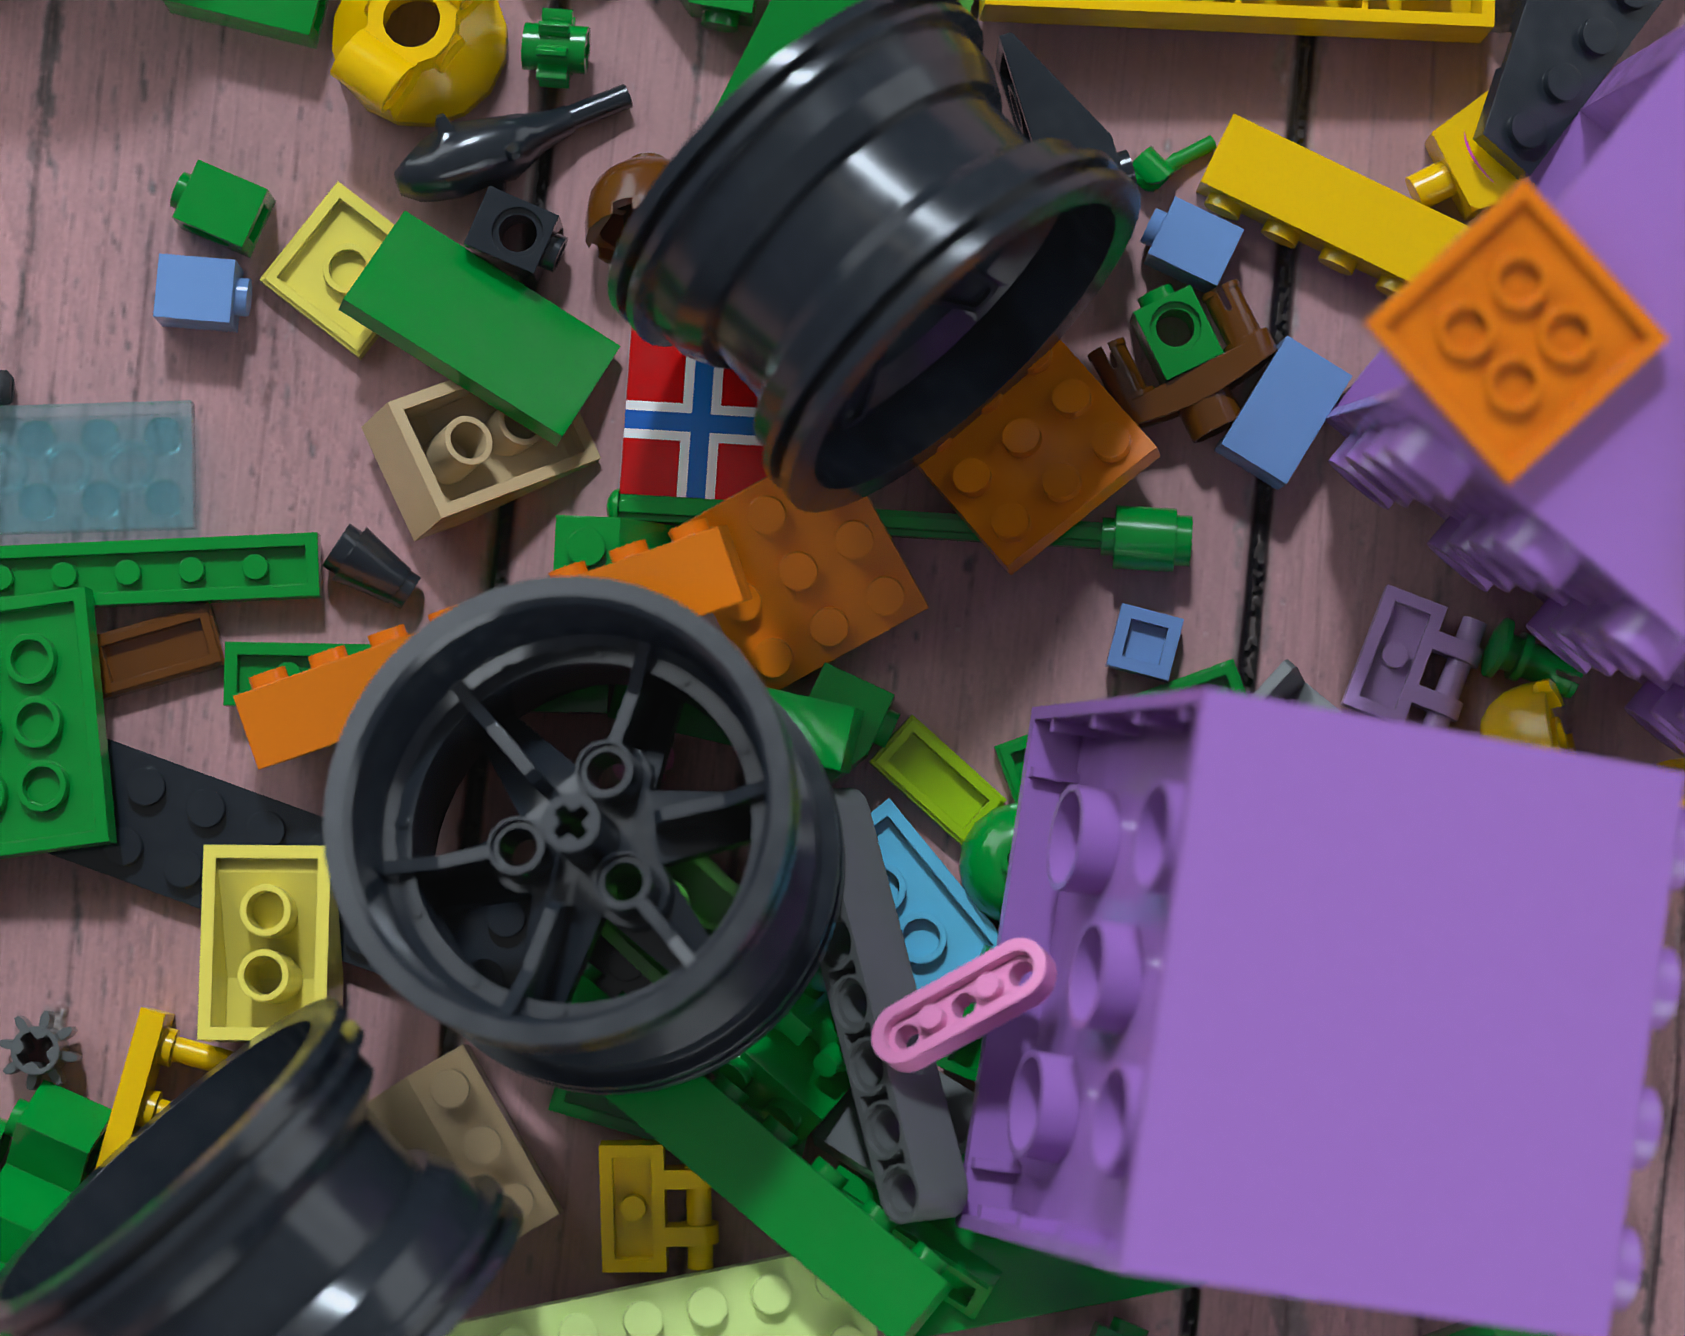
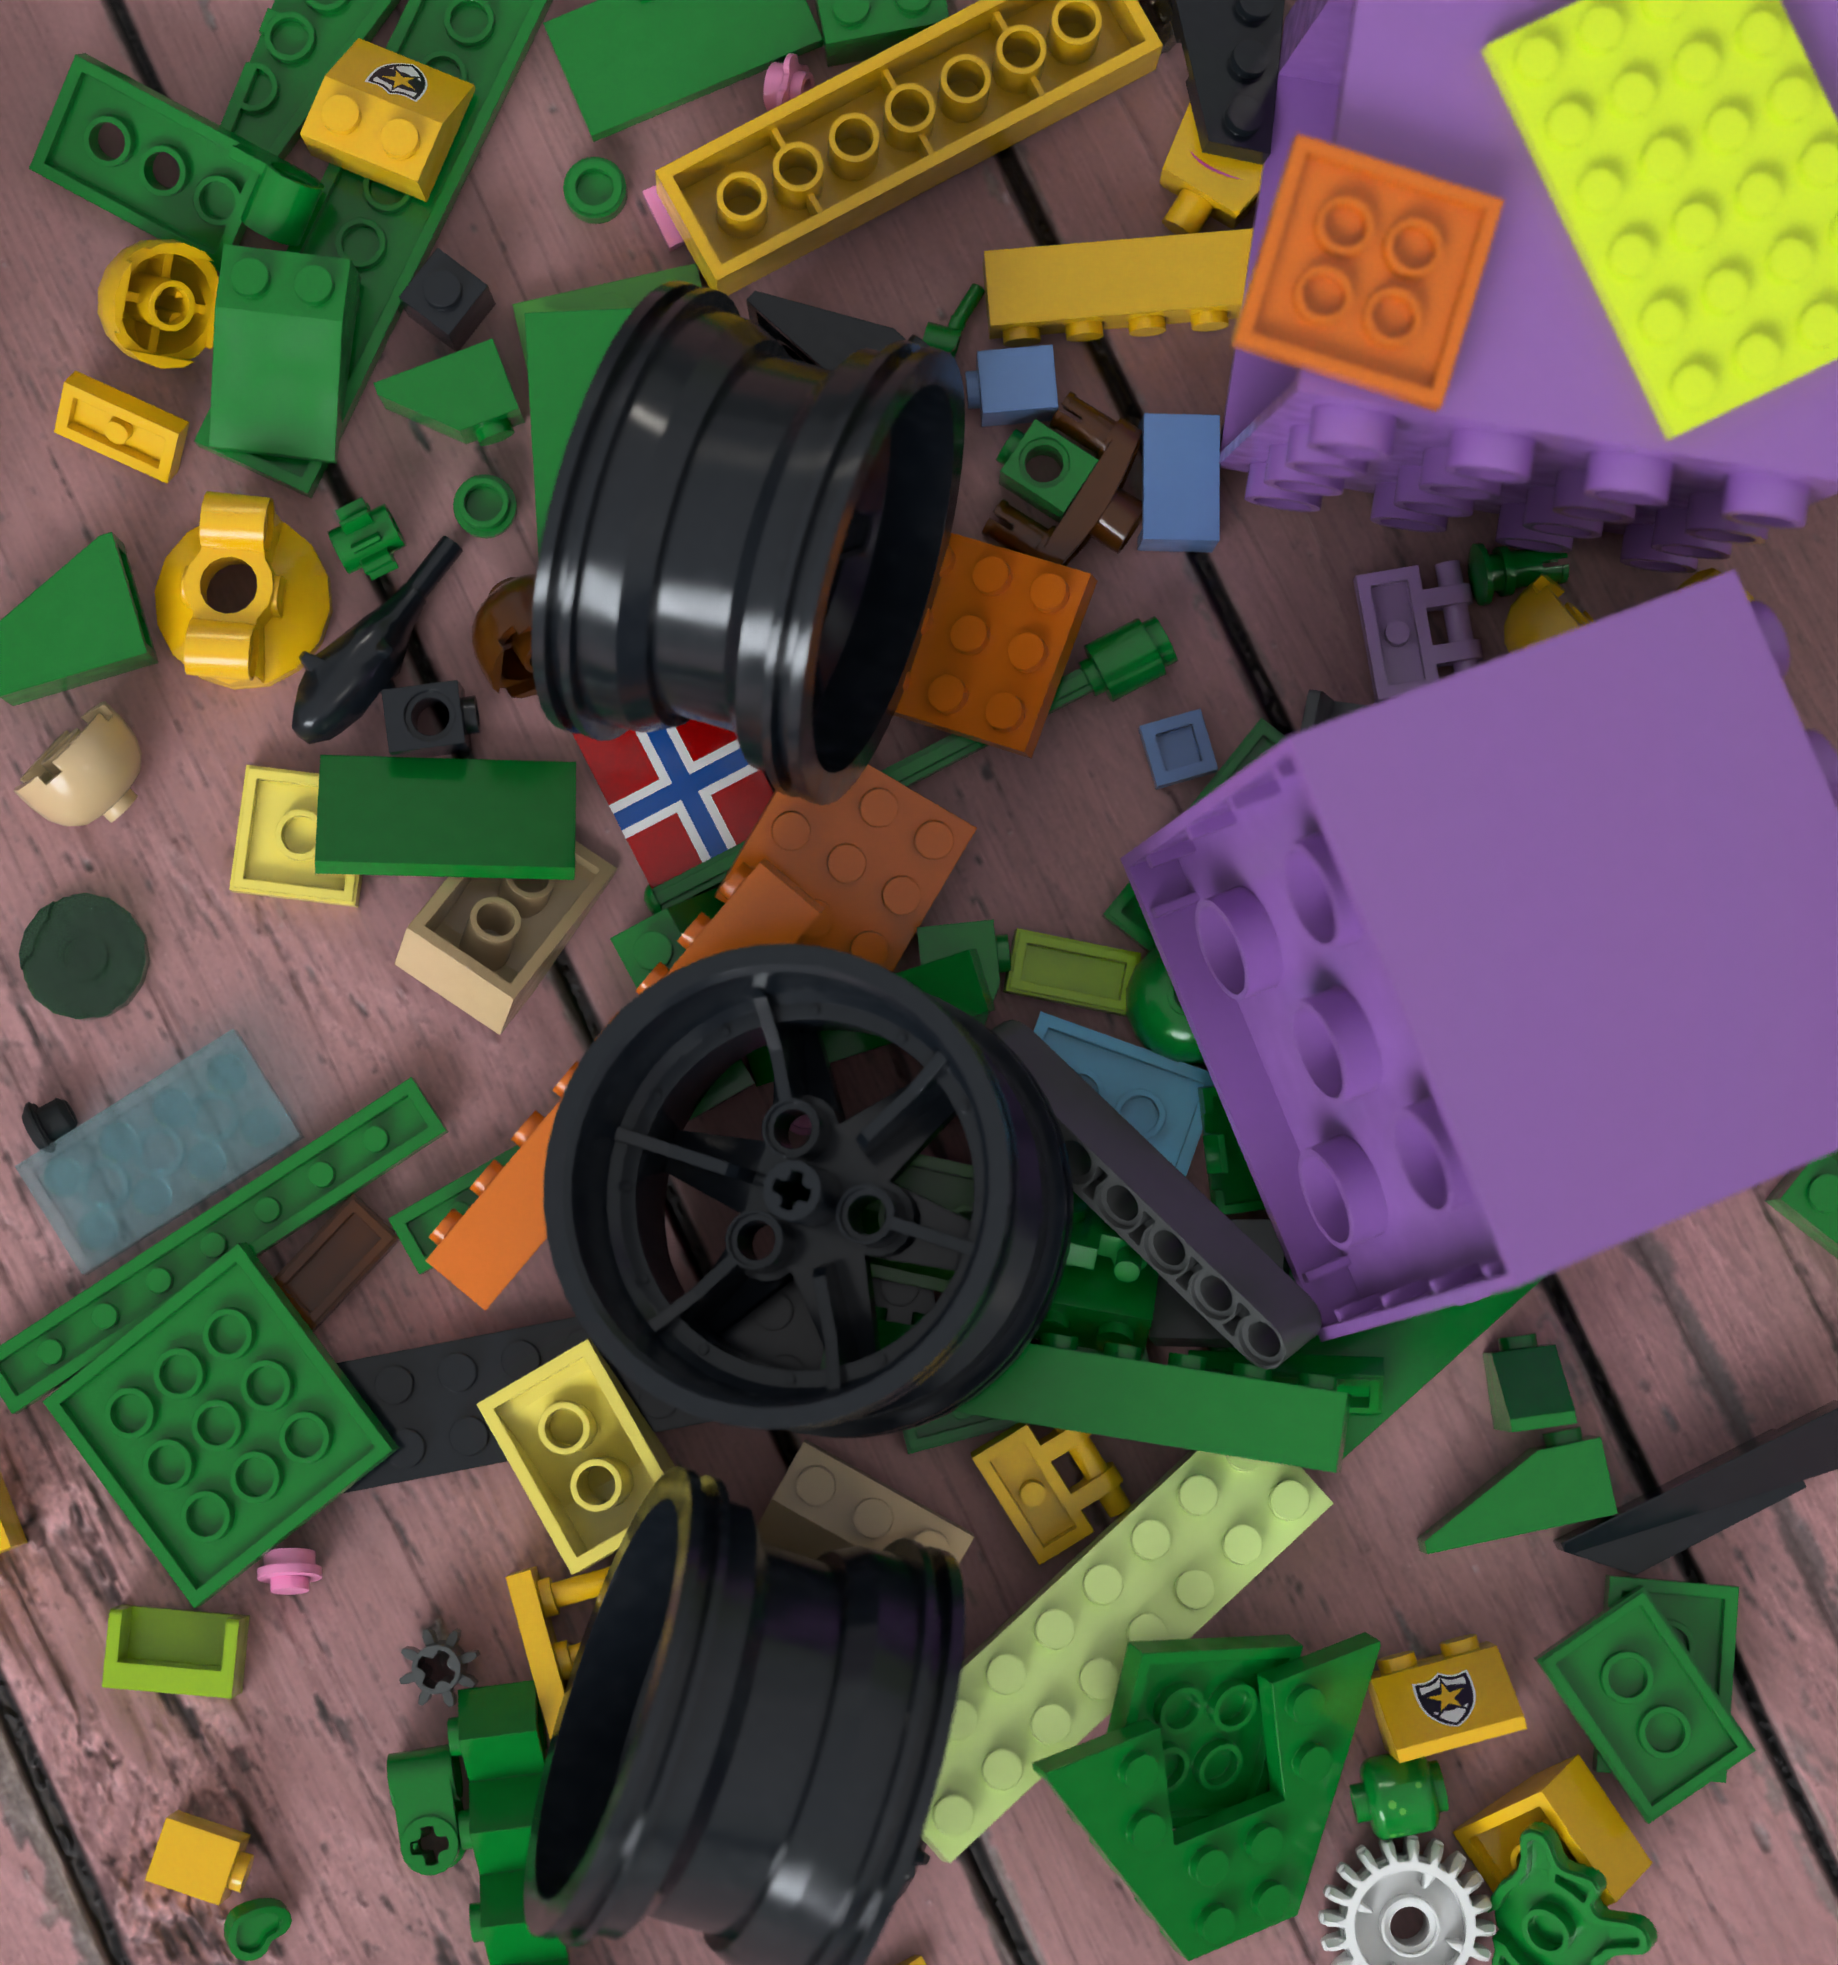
camera: 30 degrees left, 0 degrees up
(101, 263) = (84, 957): none -> clear green tile
(196, 106) = (85, 771): none -> tan cylinder
(201, 293) = (186, 931): medium blue brick -> none
(221, 207) = (159, 847): green brick -> none
(370, 567) = (475, 1079): black cone -> none
(674, 79) = (485, 506): none -> green plate
(939, 1007) = (1198, 1162): bright pink plate -> none

